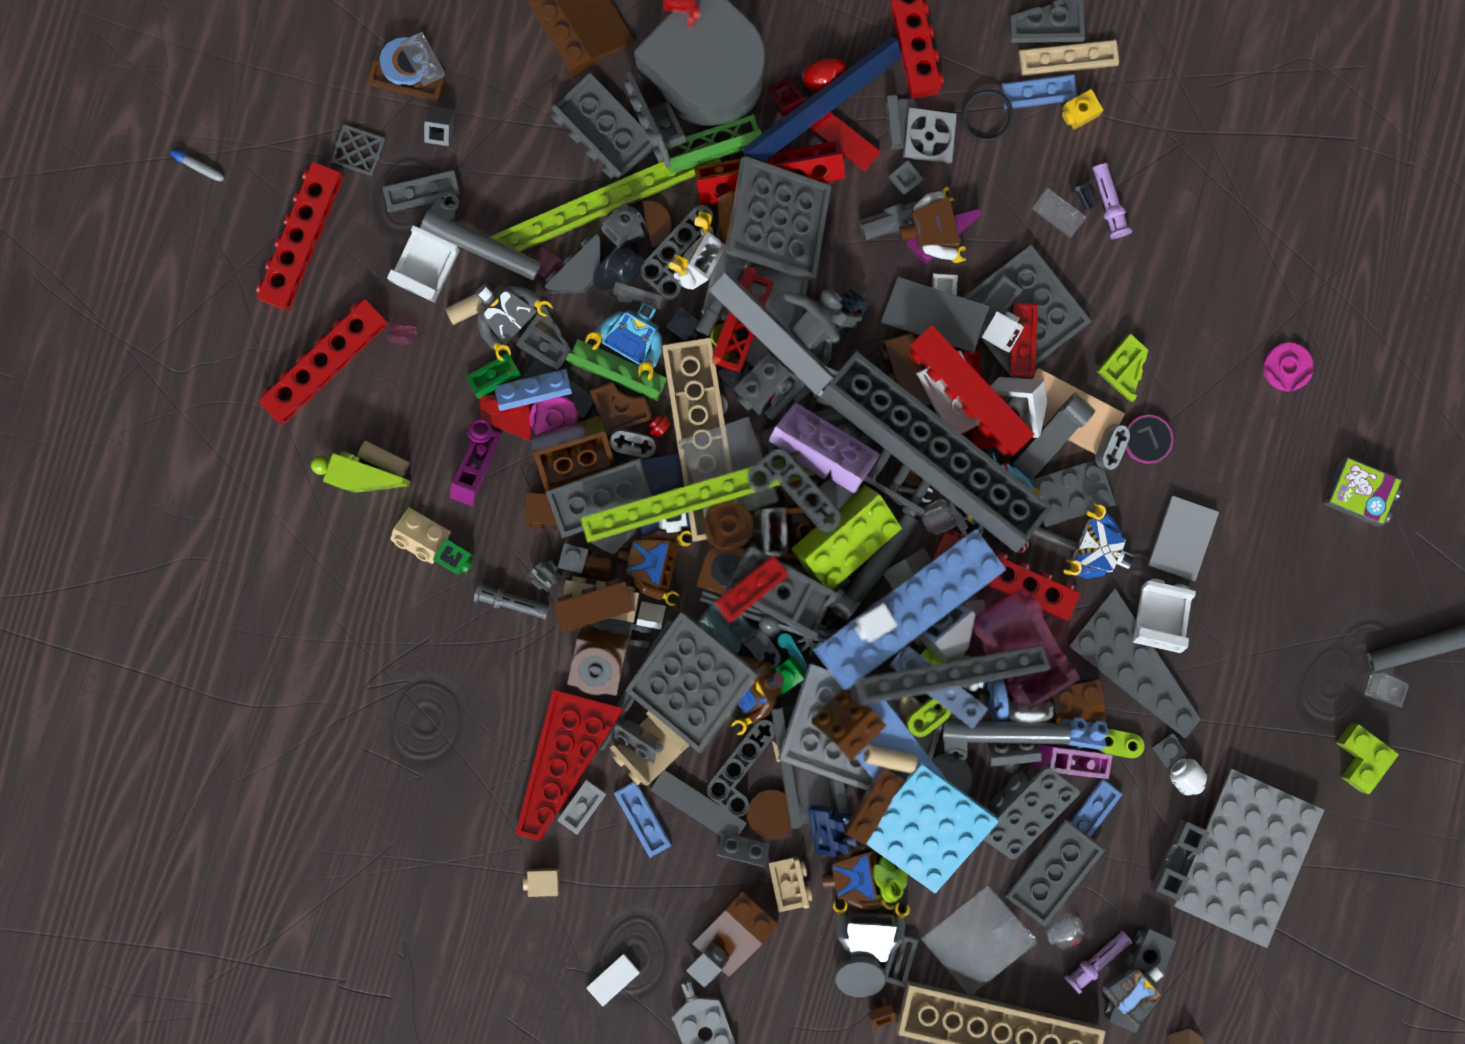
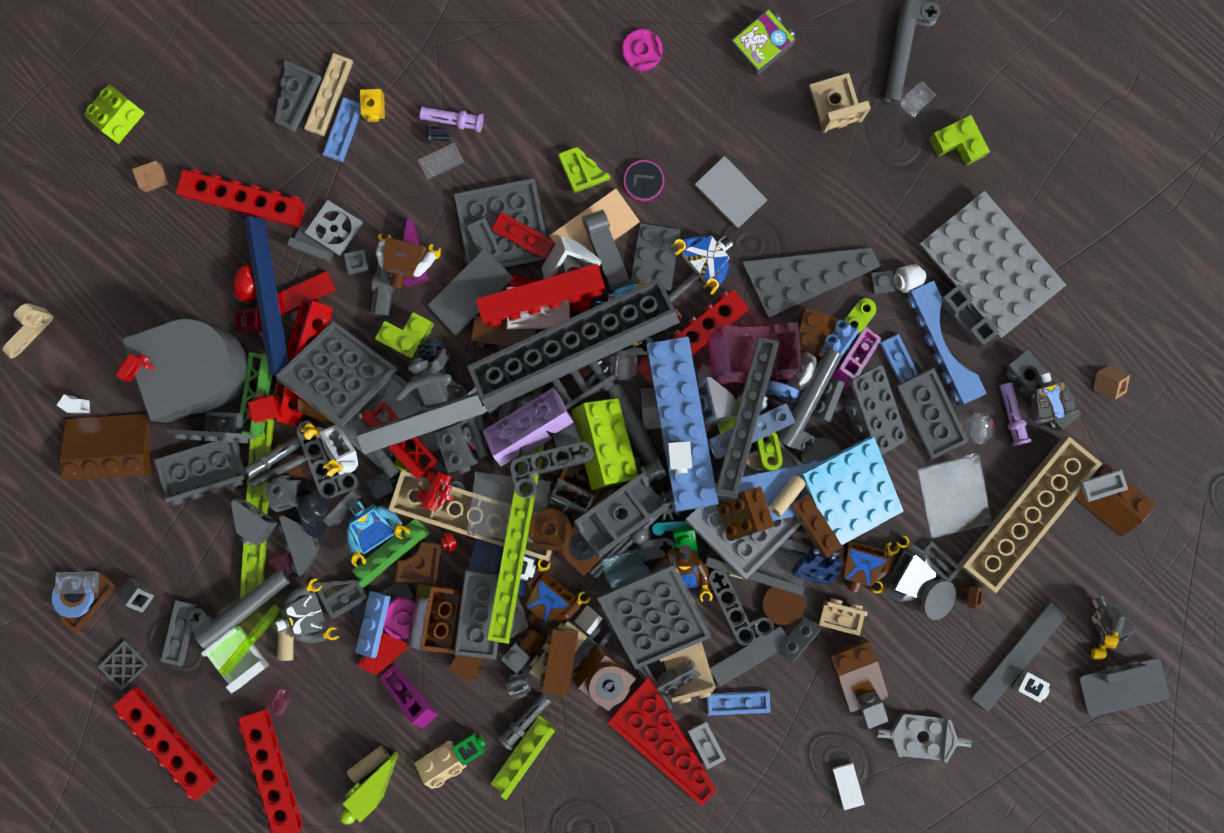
camera: 55 degrees left, 0 degrees up
(182, 157) = (59, 803): light grey piece -> none
(452, 270) = (250, 640): none -> clear neon green tile
(473, 618) = (523, 756): none -> lime fence
(480, 431) = (383, 680): magenta plate -> none
(493, 374) = (345, 648): green plate -> none
(542, 882) = (748, 803): tan brick -> none
(576, 209) = (251, 523): none -> dark grey slope
(632, 449) = (447, 565): light grey beam -> none
(643, 207) = (277, 470): none -> dark grey bar
(647, 190) = (265, 461): none -> dark grey pin
(703, 161) = (264, 409): none -> red brick
(707, 388) = (438, 491): none -> red hips
(751, 588) = (606, 537): red tile -> none
(850, 274) = (408, 339): none -> lime brick
(890, 880) = (876, 540): lime plate -> none
(945, 283) = (450, 272): white tile -> none
(971, 99) = (321, 179): black tyre -> none
(1003, 330) = (508, 247): white brick -> none
(1106, 889) = (927, 304): none -> medium blue arch
(1112, 446) = (636, 210): dark grey beam -> none
(1163, 615) = (781, 236): white panel -> none
(1330, 616) = (839, 114): none -> tan bracket

